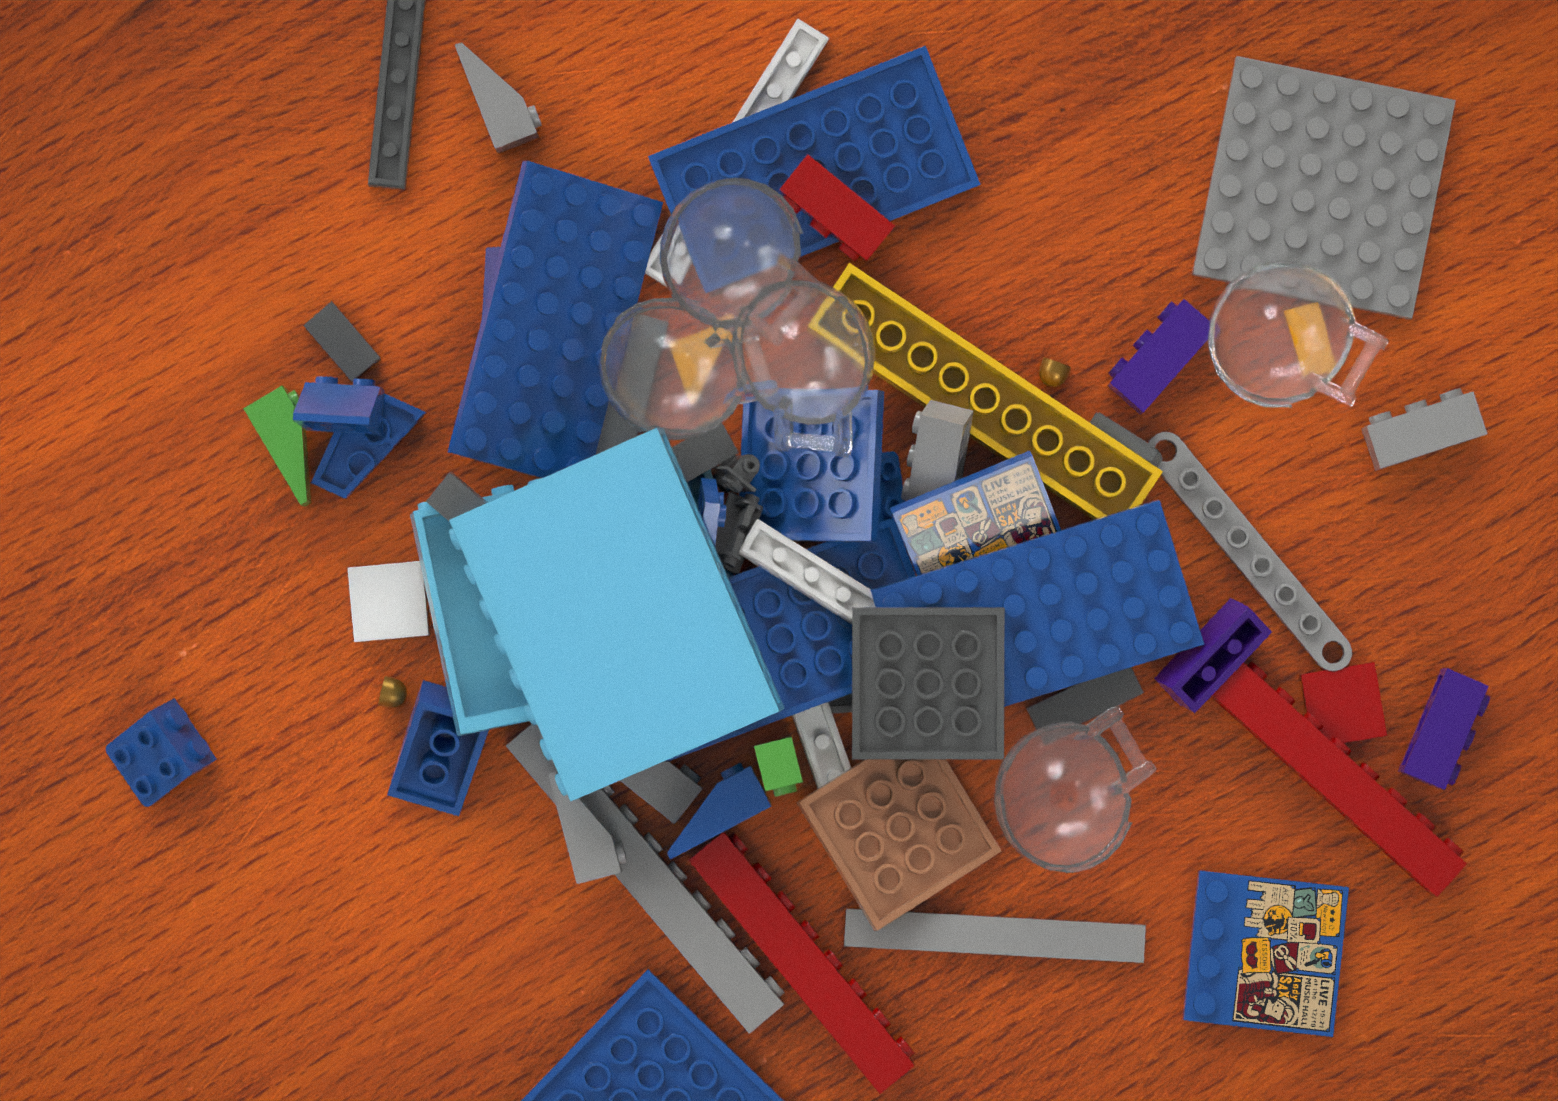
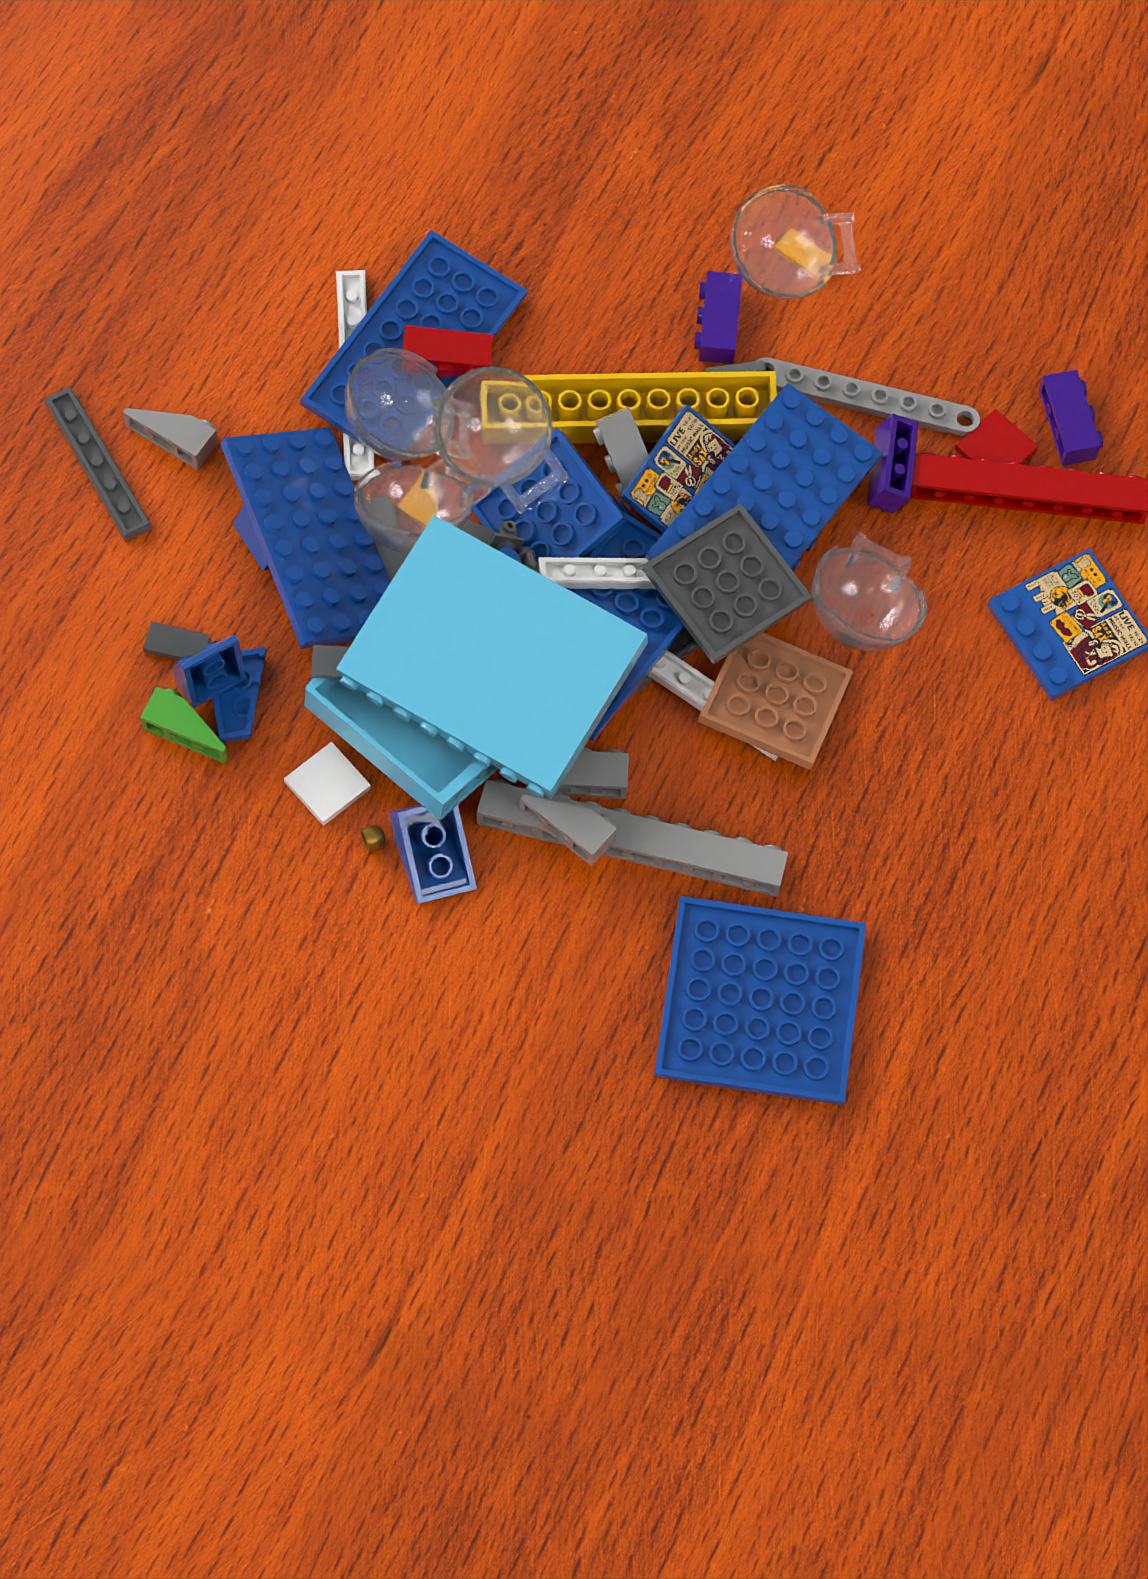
camera: 40 degrees left, 20 degrees down
(159, 752) = (238, 982): blue bracket -> none
(727, 805) = (657, 744): blue slope -> none
(779, 766) = (669, 692): bright green brick -> none
(802, 962) = (778, 823): red brick -> none
(1000, 936) = (891, 727): light grey tile -> none
(1053, 372) = (658, 365): pearl gold hinge -> none
(1086, 699) = (839, 532): dark grey tile -> none
(1327, 180) = (729, 147): light grey plate -> none
(1423, 428) = (915, 257): light grey brick -> none

